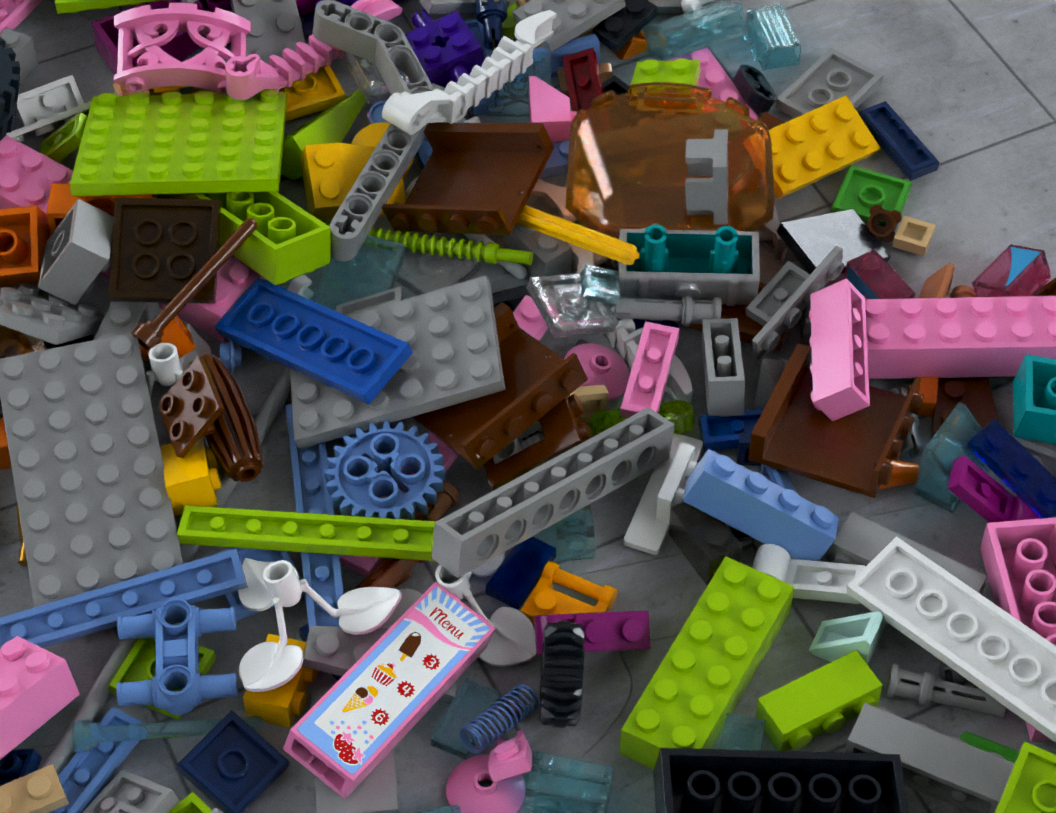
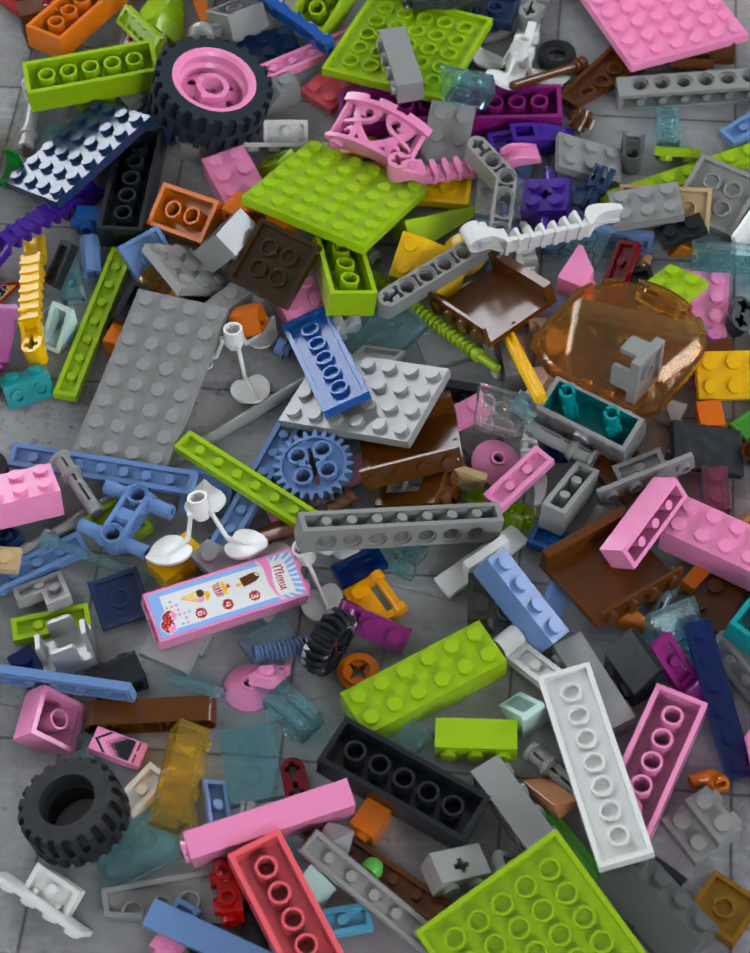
camera: 35 degrees right, 5 degrees up
(60, 636) = (71, 475): none -> light grey pin
(66, 37) = (324, 92): none -> coral plate
(151, 332) = (234, 312): reddish brown piece -> none
(191, 478) = (207, 412): yellow brick -> none
(212, 405) = (243, 376): reddish brown plate -> none
(601, 687) = (358, 662): none -> orange gear
(805, 203) = (709, 413): none -> orange brick
(943, 516) = (633, 667): none -> black slope
(962, 720) = (551, 796): none -> nougat slope

